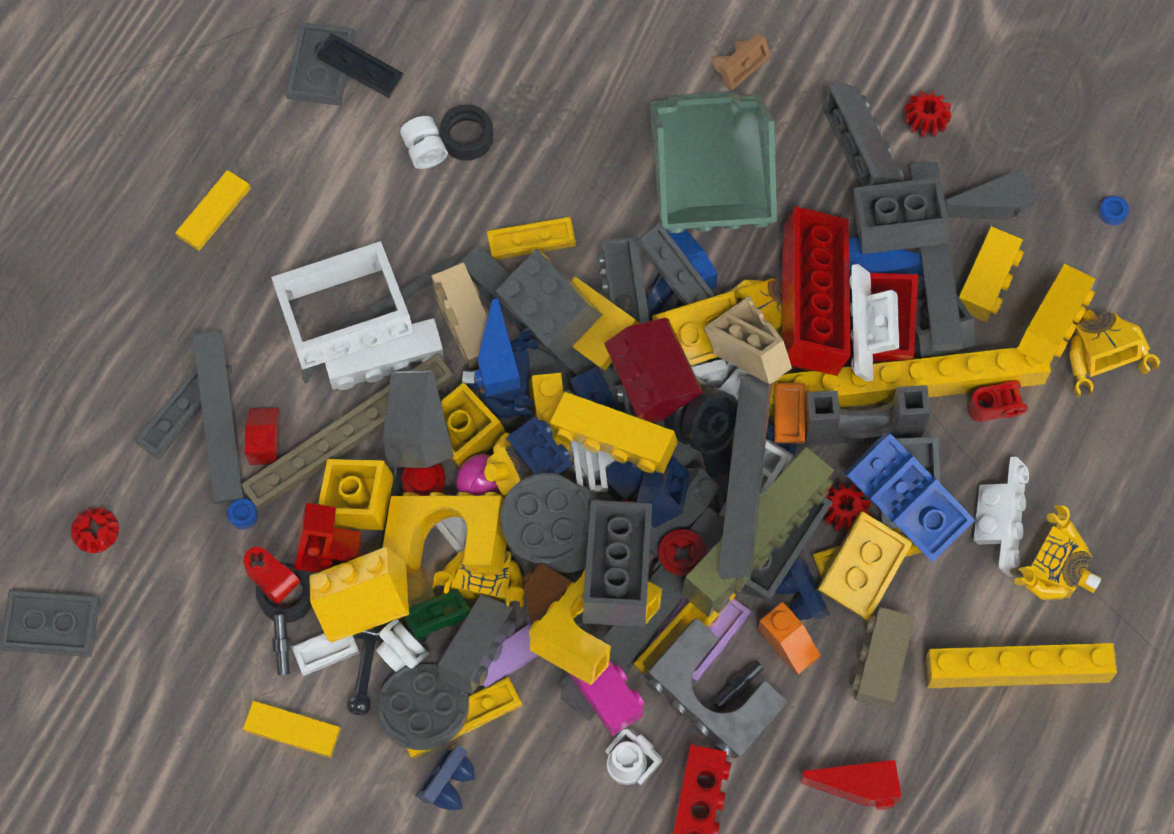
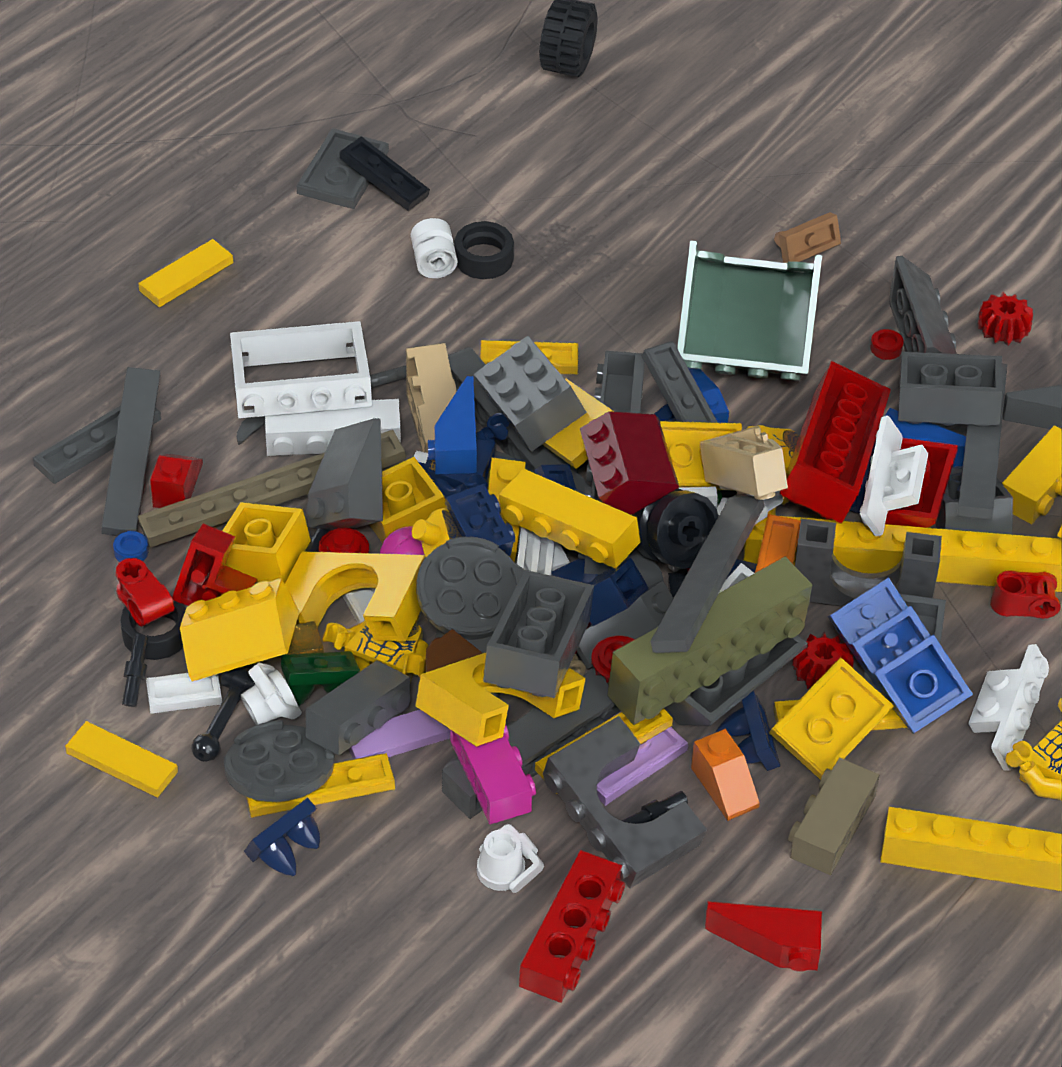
camera: 10 degrees right, 20 degrees down
(831, 159) = (886, 344): none -> red tile

